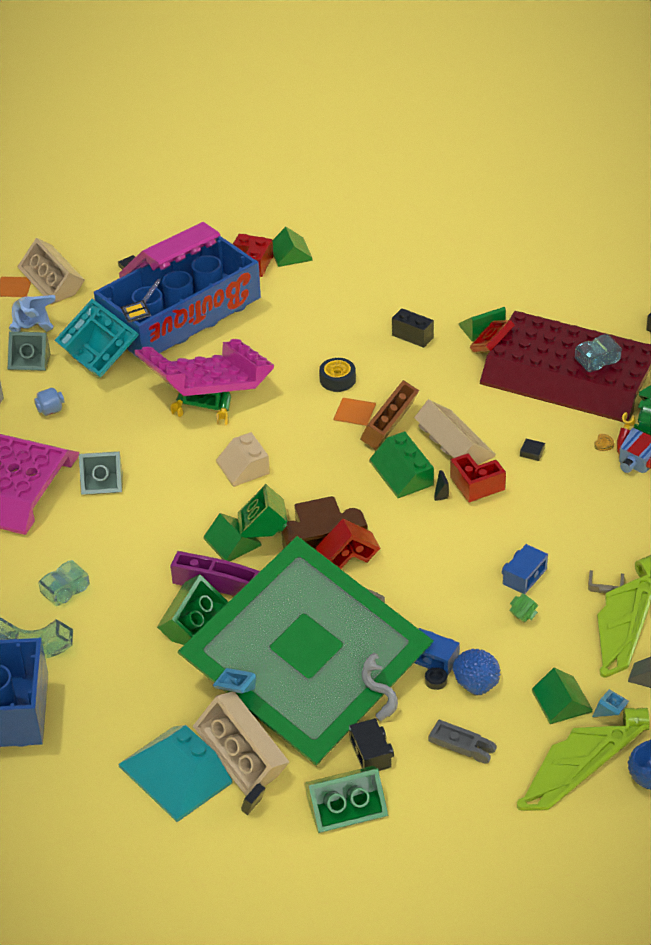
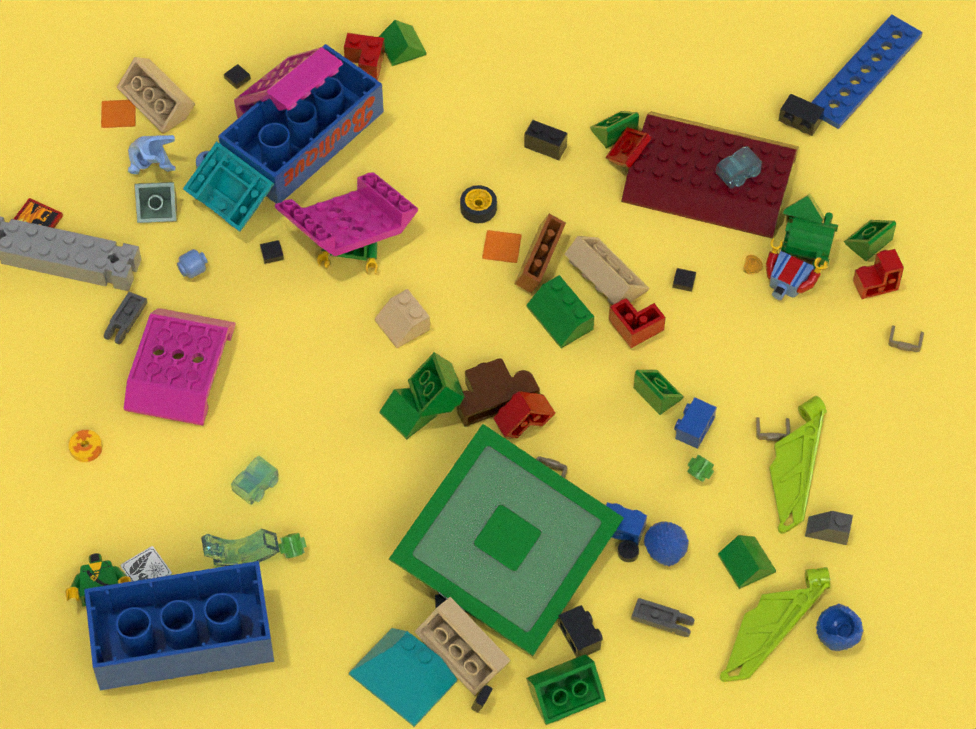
camera: 10 degrees left, 15 degrees up
(87, 641) = (292, 545): none -> bright green gear
(100, 472) = (264, 348): sand green slope -> none
(128, 399) = (271, 251): none -> black tile
(138, 309) = (269, 157): piece -> none
(191, 610) = (388, 503): green slope -> none
(221, 574) = (405, 459): magenta slope -> none
(236, 681) = (448, 586): dark azure slope -> none
(392, 703) = (570, 555): light grey animal -> none
(442, 487) = (603, 335): black slope -> none
(487, 538) = (656, 390): none -> green slope
(610, 704) = (793, 566): dark azure slope -> none

